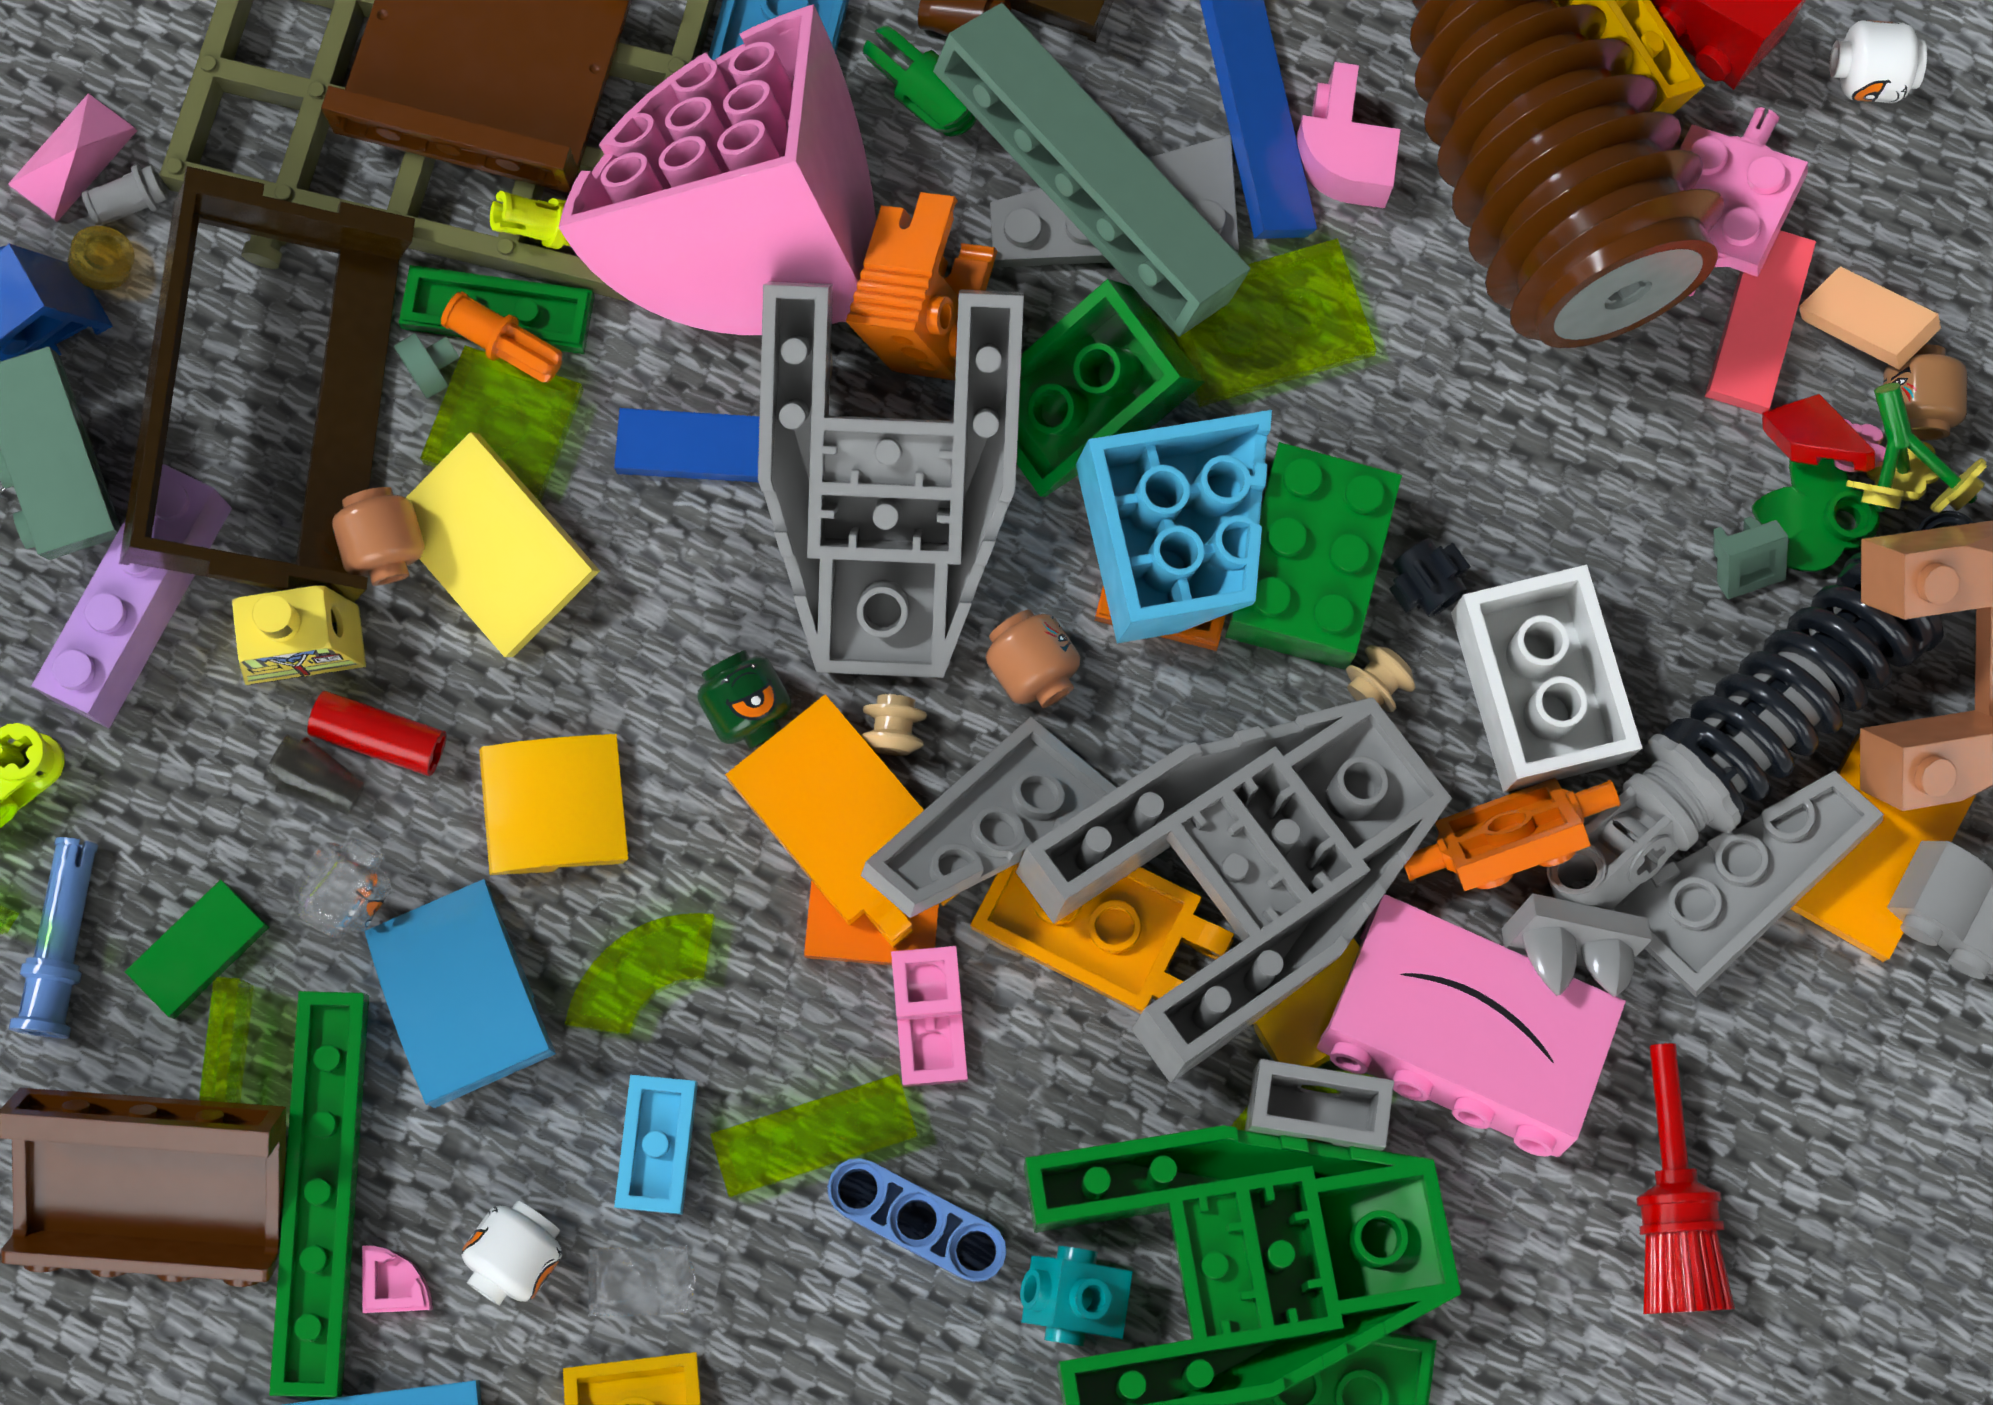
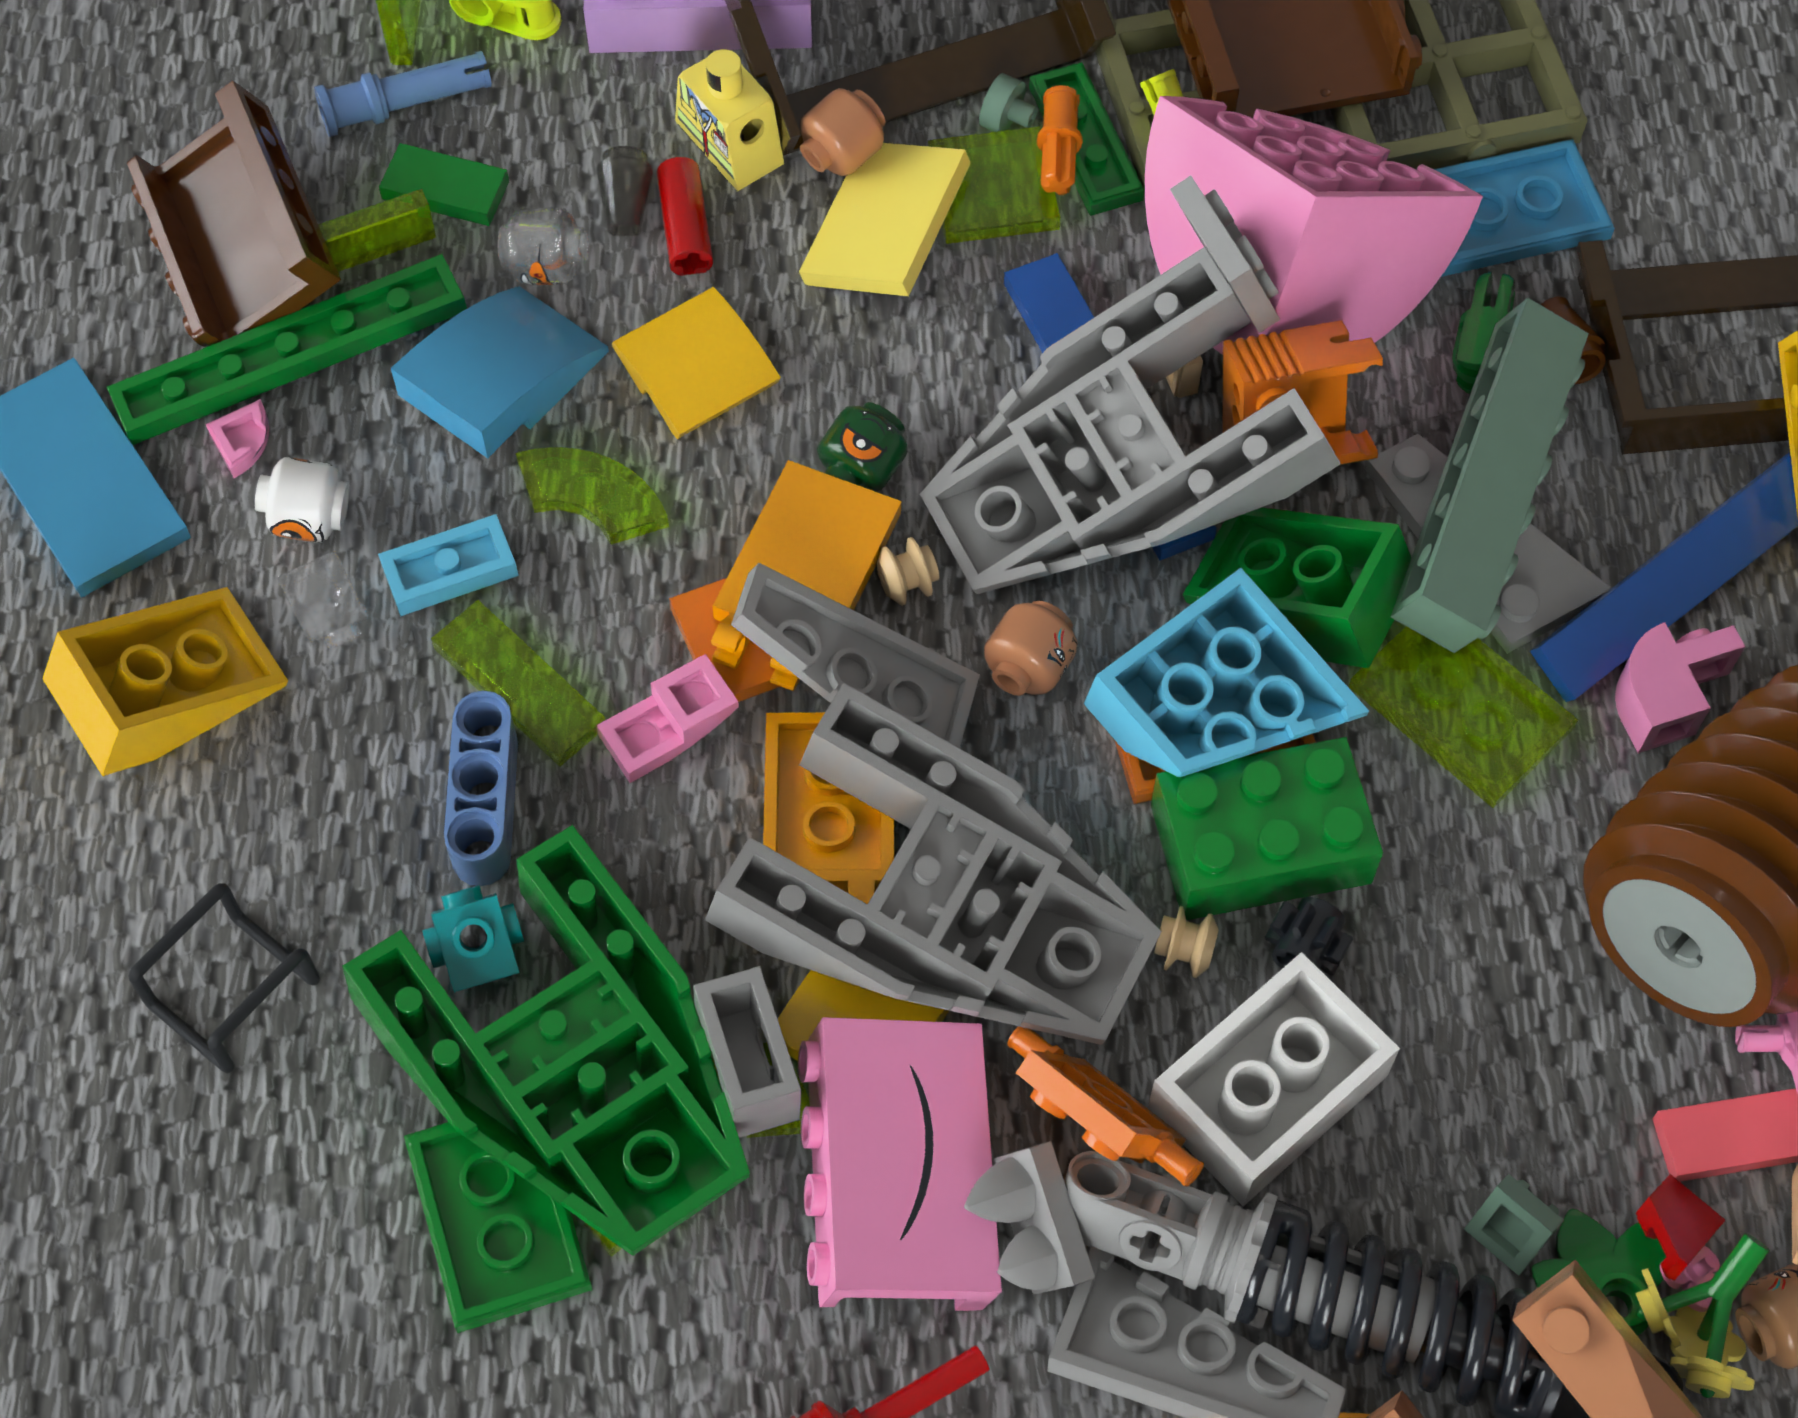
camera: 65 degrees right, 15 degrees down
(761, 267) = (1229, 251): none -> light grey plate

